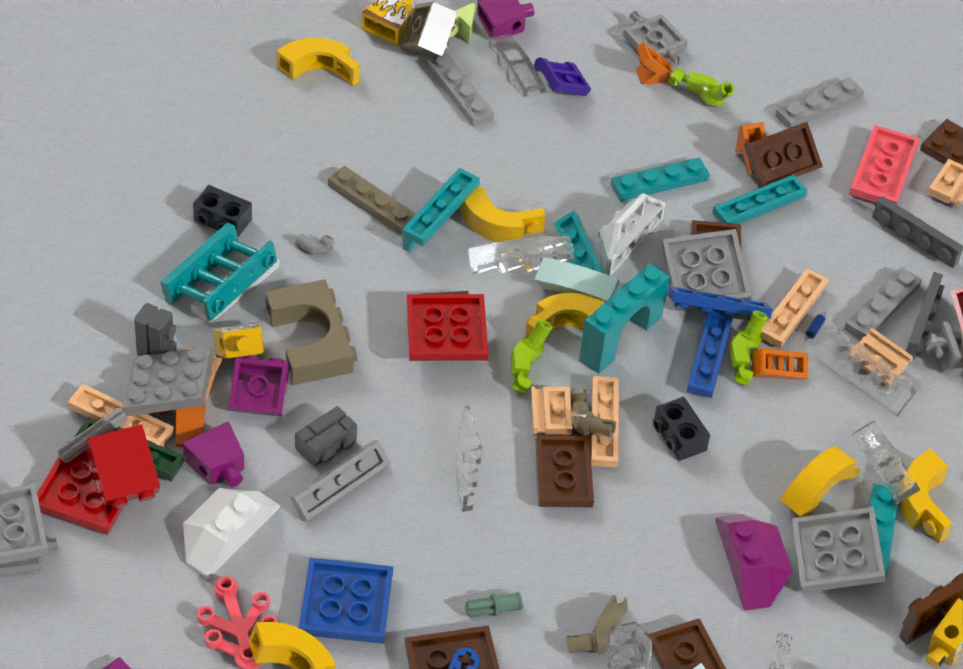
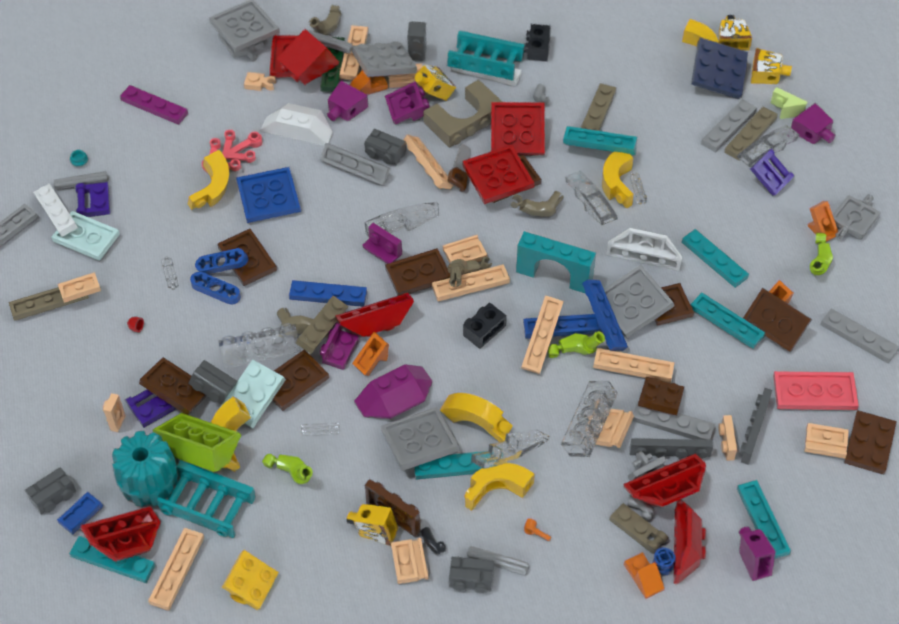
camera: 75 degrees right, 5 degrees up
(45, 426) = (330, 24): none -> dark tan arm
(108, 554) = (256, 81): none -> light nougat plate
(316, 22) = (734, 33): none -> torso
(373, 282) = (518, 125): none -> red plate
(375, 56) = (719, 68): none -> dark blue plate
(388, 397) = (430, 164): none -> light nougat plate
(413, 373) = (458, 170): none -> piece
(429, 29) = (761, 85): slope -> none
(482, 75) = (751, 132): none -> dark tan plate
(494, 605) = (296, 266): sand green axle -> none
(504, 491) = (383, 244): none -> magenta bracket
(516, 305) = (539, 209): none -> dark tan arm
(527, 352) = (504, 224): lime arm -> none
(553, 584) = (323, 292): none -> blue plate
(564, 310) = (547, 228): yellow arch -> none
(572, 278) = (579, 227): light aqua slope -> none
(584, 252) = (611, 230): teal plate -> none
(621, 531) = (377, 316): none -> red wedge
(622, 597) = (321, 325): none -> dark tan plate
(654, 597) = (338, 347): none -> magenta bracket
(687, 556) = (372, 352): none -> orange slope
(726, 372) = (542, 335): none -> light nougat plate
(763, 364) = (567, 356): orange slope -> none
(815, 326) = (626, 384): blue piece -> none
(849, 298) = (661, 396): none -> reddish brown plate
(925, 260) = (728, 444): none -> light nougat plate

